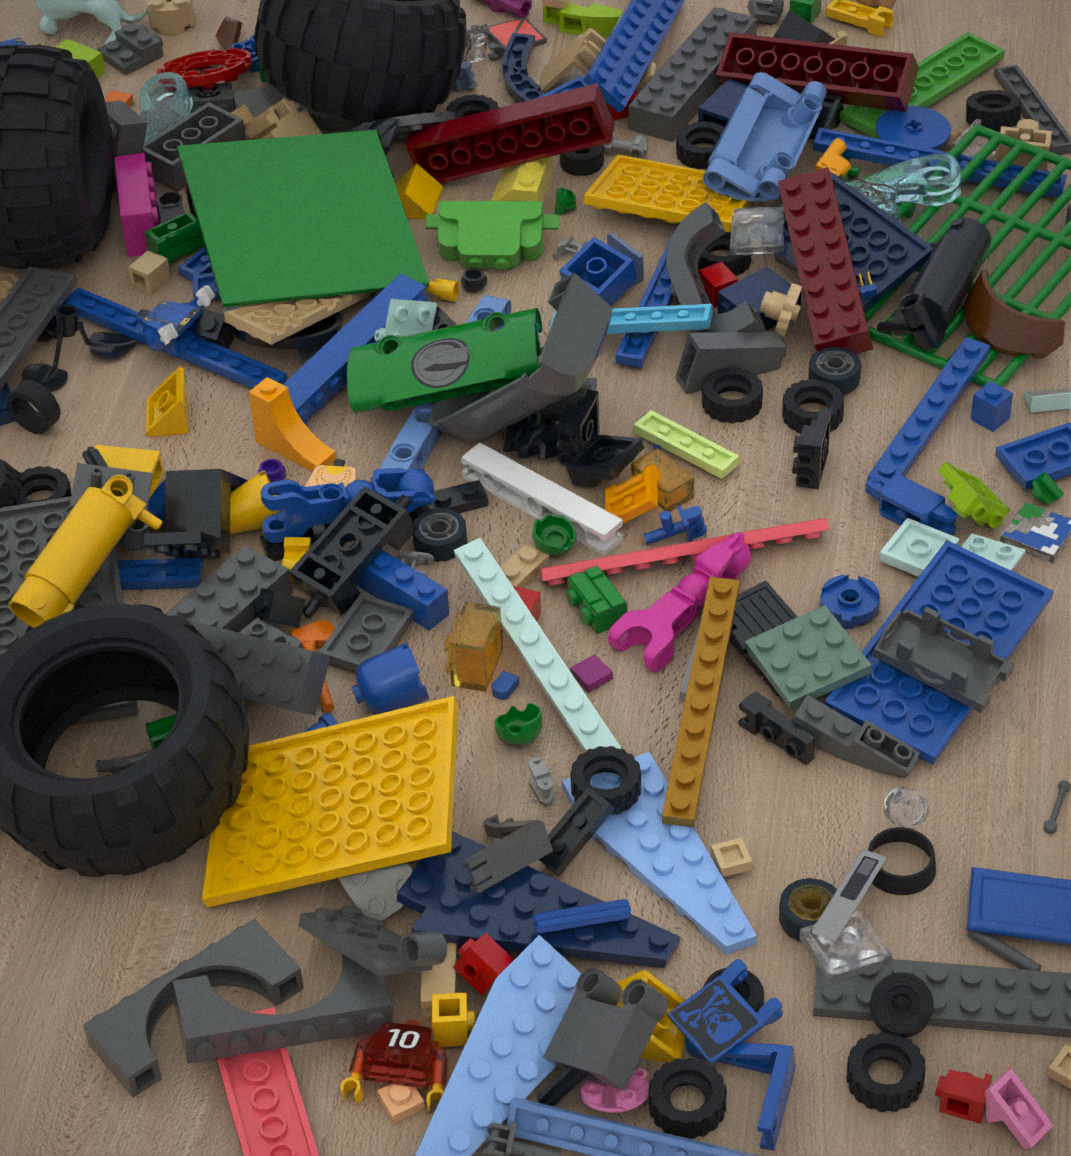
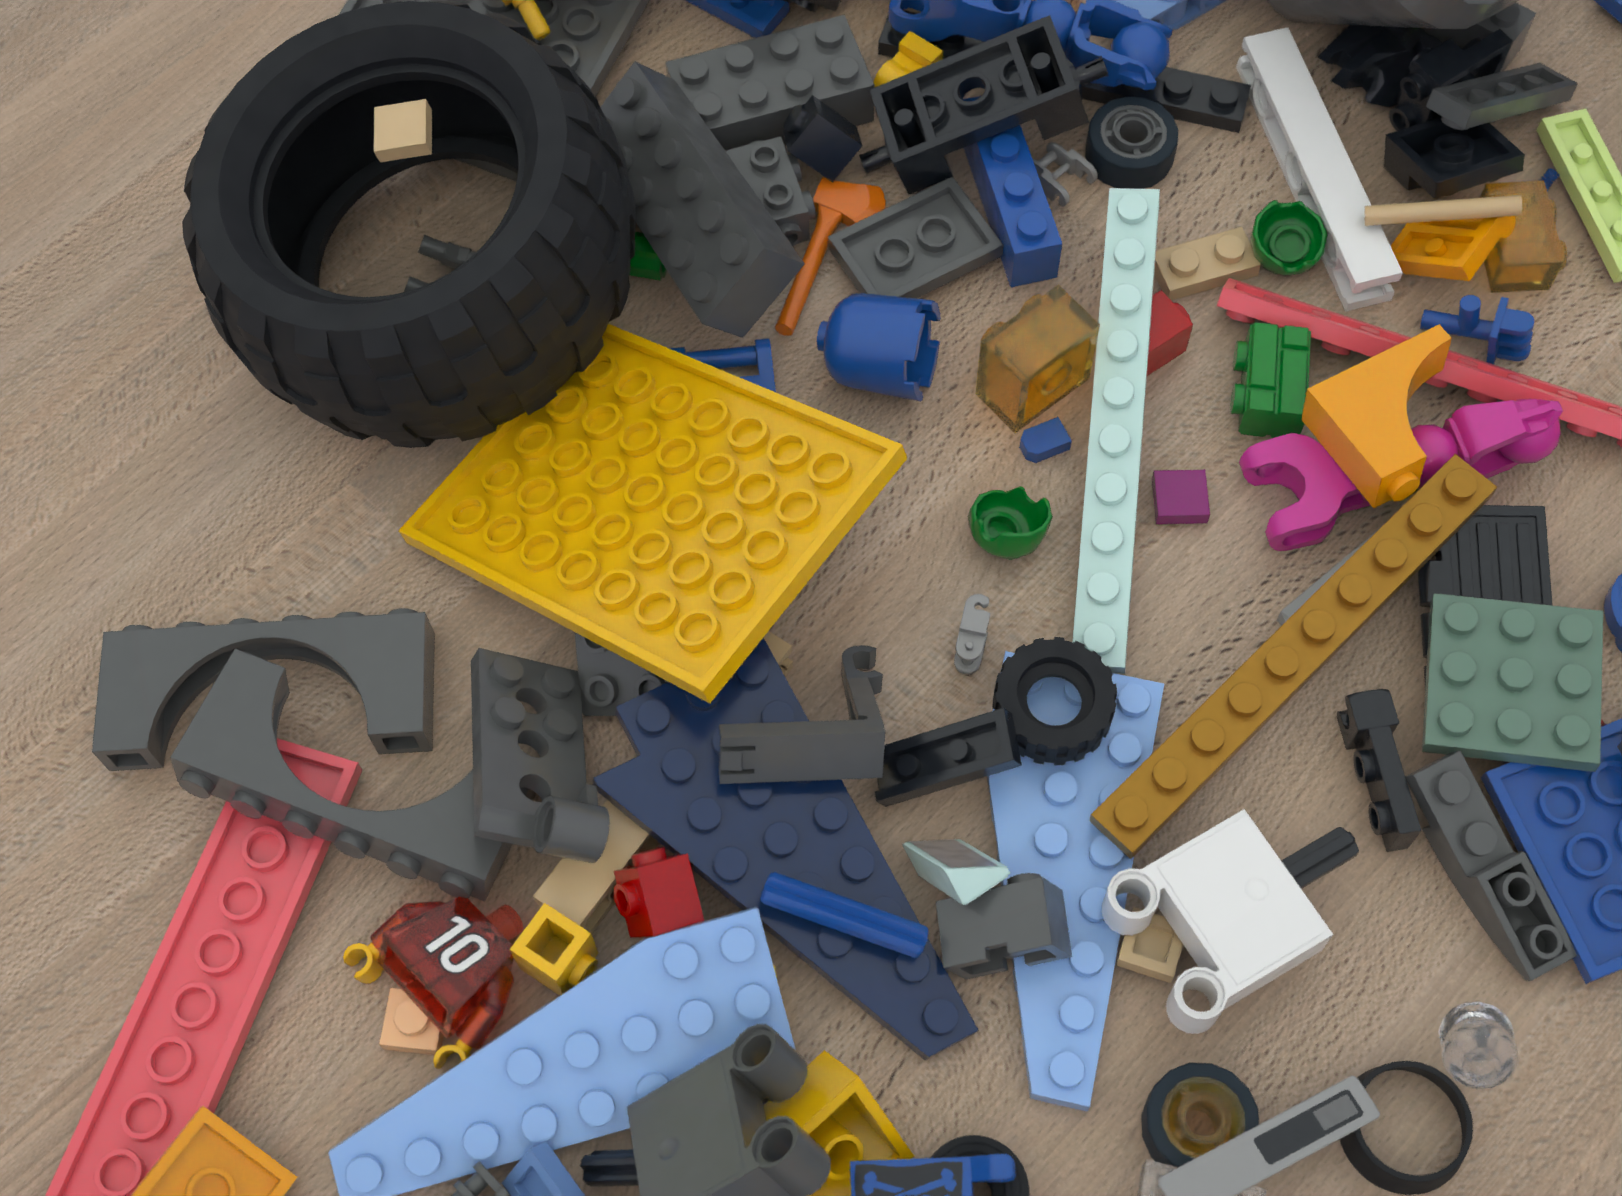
camera: 35 degrees right, 20 degrees up
(97, 676) = (403, 130): none -> tan tile
(608, 421) = (1500, 96): none -> dark grey plate
(615, 875) = (955, 867): none -> light aqua slope
(622, 480) = (1443, 210): none -> tan bar
(658, 585) = (1365, 418): none -> light orange arch
(658, 883) = (1004, 924): none -> dark grey brick
(756, 813) = (1232, 910): none -> white piece

